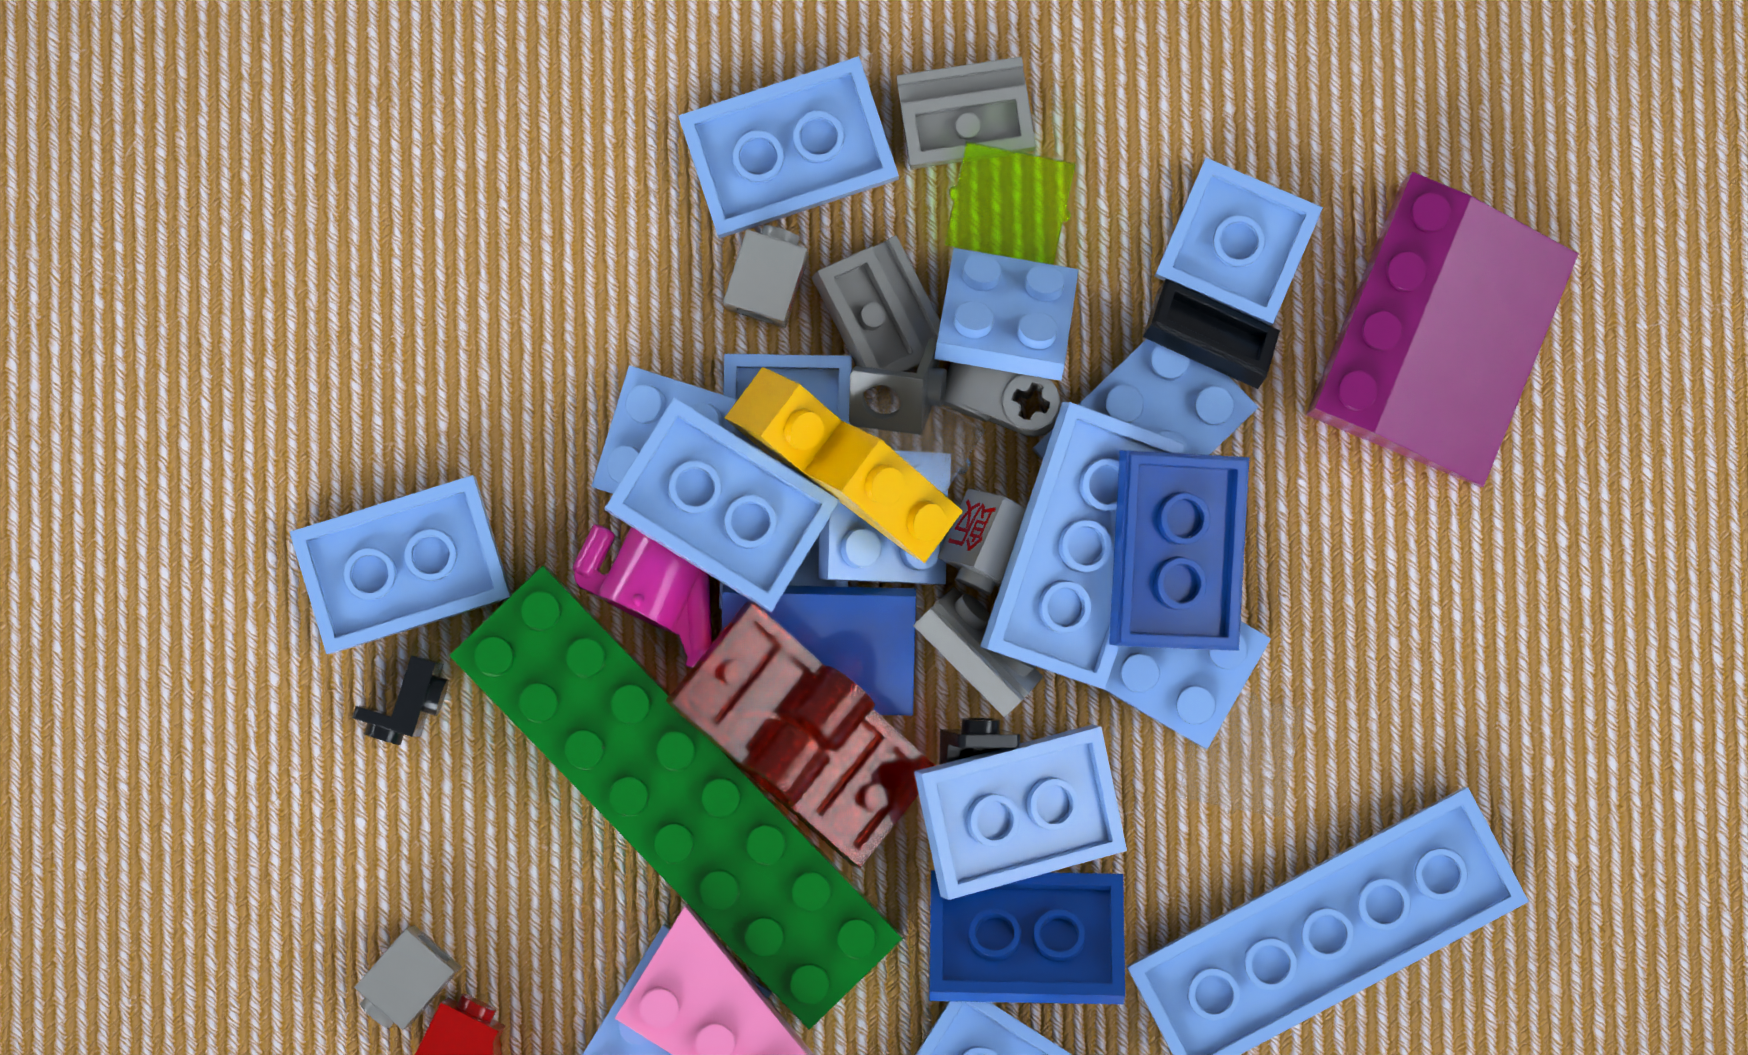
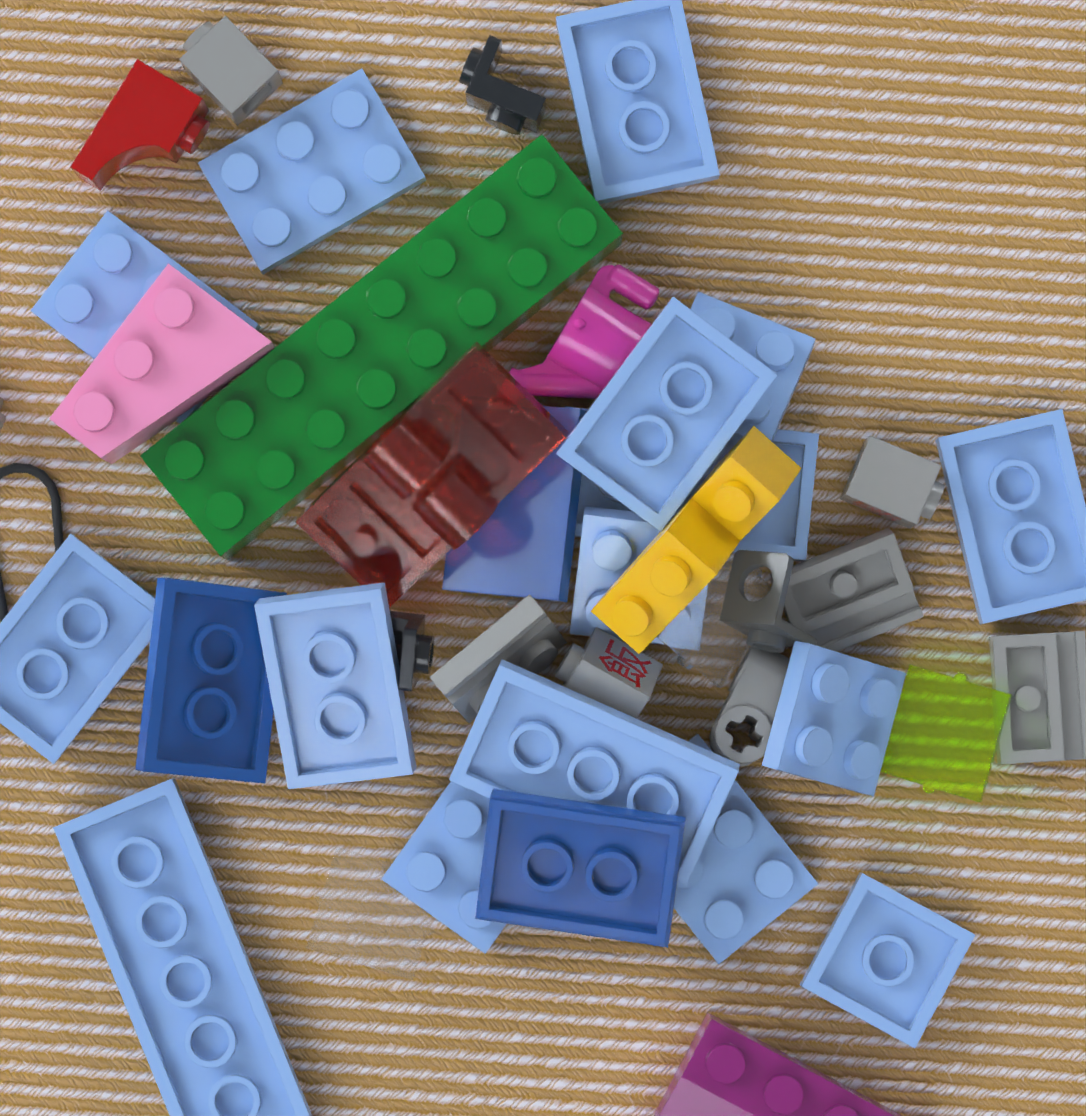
camera: 90 degrees right, 0 degrees up
(502, 886) = (312, 171): none -> light blue plate
(1211, 333) = (796, 923): black tile -> none

